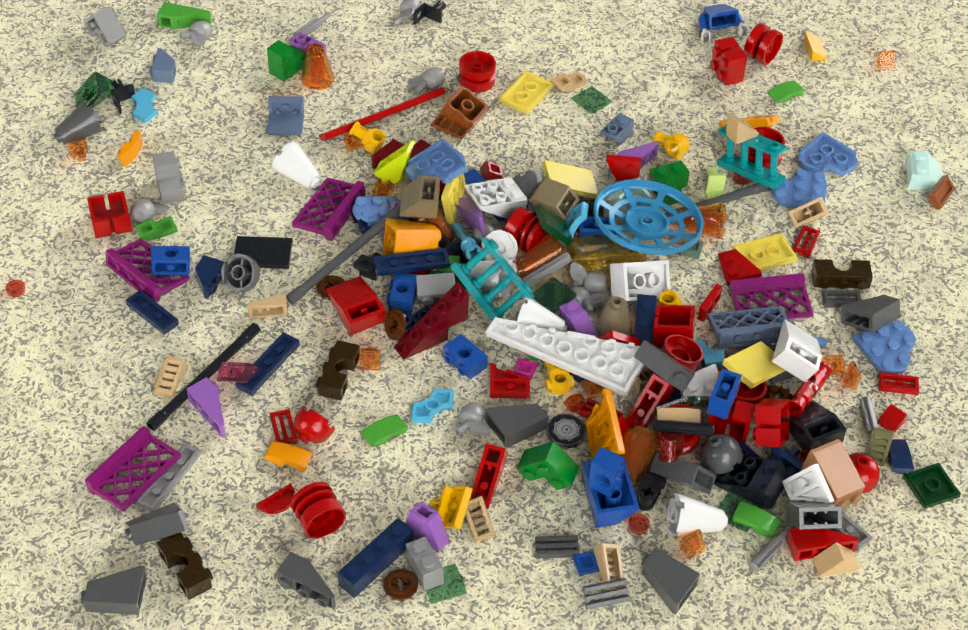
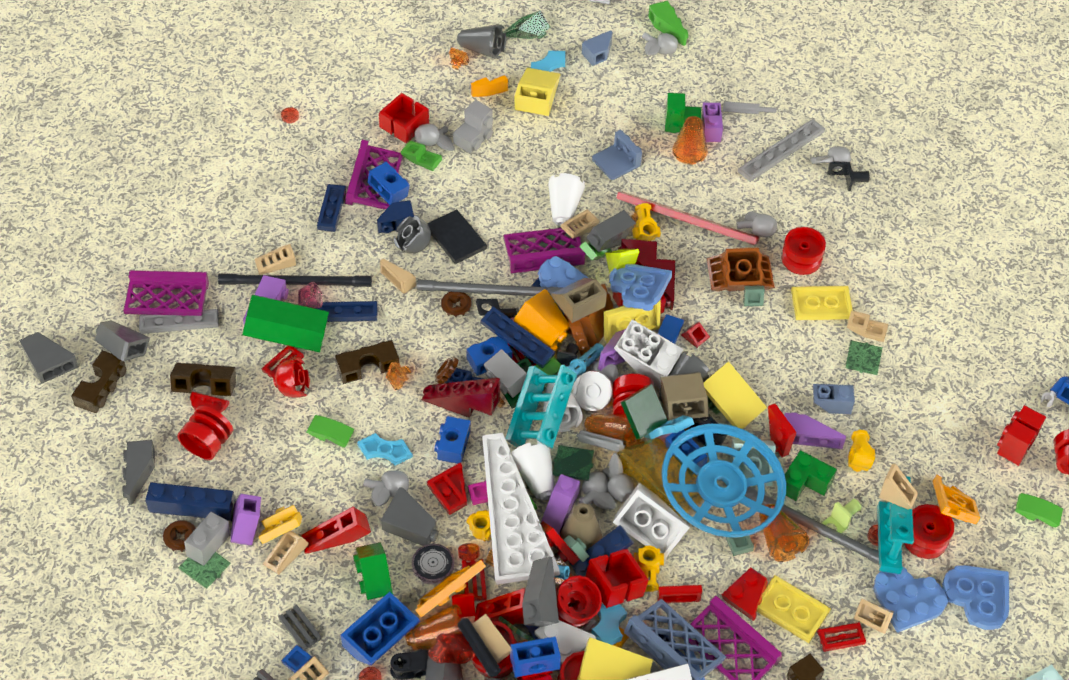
camera: 55 degrees right, 5 degrees up
(121, 93) = (545, 42): black bracket -> none
(170, 123) = (536, 91): none -> light yellow slope
(253, 399) = (285, 323): none -> green slope
(265, 475) = (189, 376): none -> dark brown arch
(283, 453) = (253, 382): light orange slope -> none
(331, 172) = (585, 216): none -> tan slope
(356, 305) = (444, 329): red slope -> none
(364, 175) = (592, 252): none -> bright green slope
(365, 153) = (611, 231): none -> dark grey slope
(369, 33) = (781, 150): none -> light grey tile
(383, 188) = (599, 271): clear orange tile -> none
(489, 120) = (753, 295): none -> sand green plate
(606, 472) = (374, 611): blue brick -> none
(634, 331) = (577, 547): none -> sand green plate

